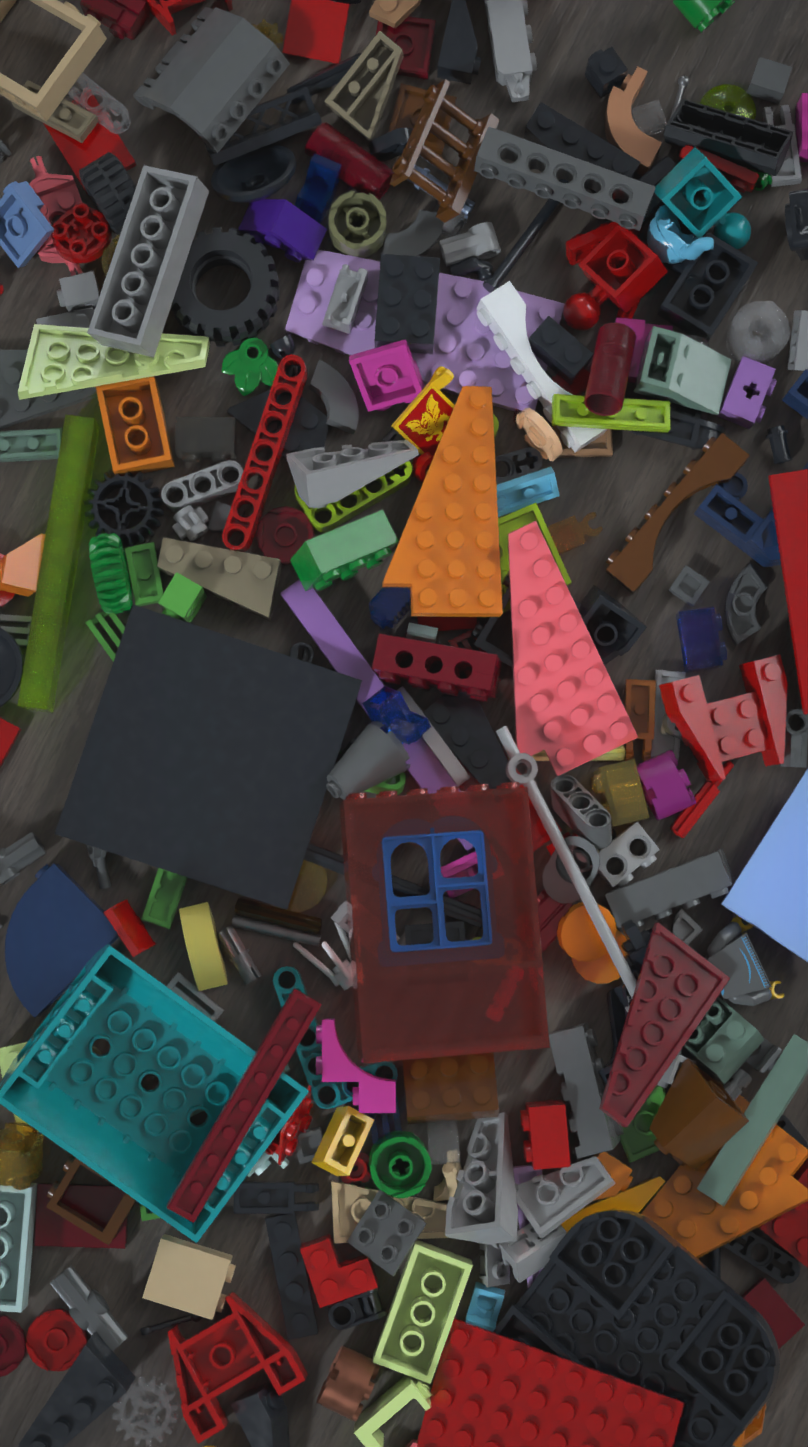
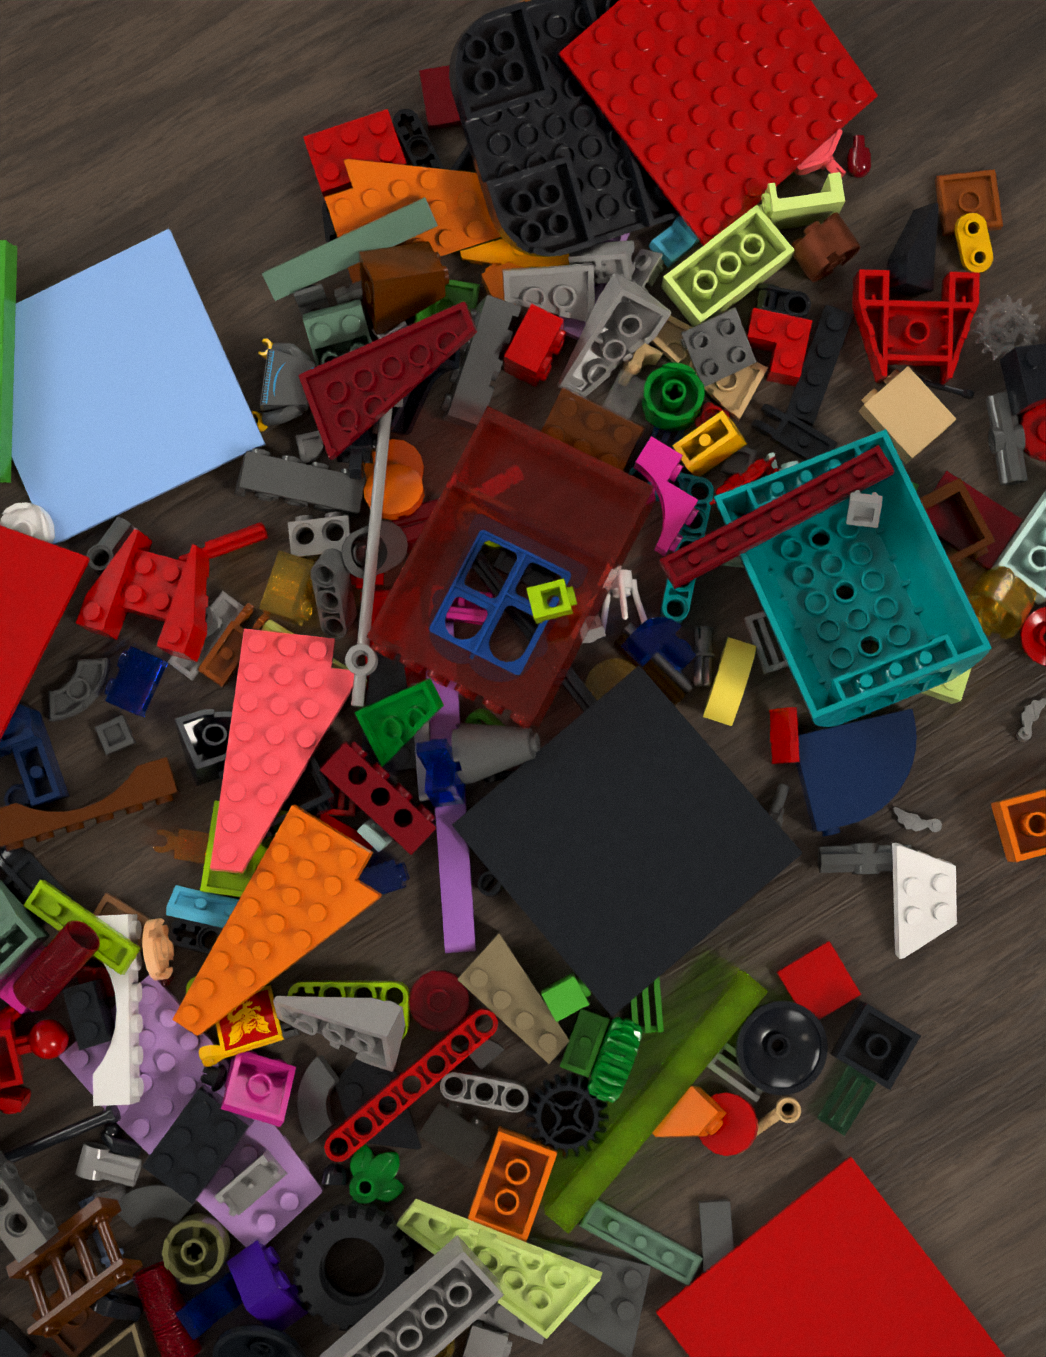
camera: 145 degrees left, 0 degrees up
(164, 898) = (740, 742): bright green plate -> none
(172, 1155) = (864, 509): none -> light grey tile
(190, 523) = (516, 1063): light grey gear -> none
(285, 946) = (659, 636): none -> clear blue brick
(344, 551) = (395, 948): brick -> none
(401, 905) = (541, 594): none -> lime brick
(421, 465) = (278, 986): red tile -> none
(428, 363) = (215, 1077): none -> black piece
(461, 740) = (397, 718): none -> green wing
(665, 785) = (247, 572): magenta brick -> none

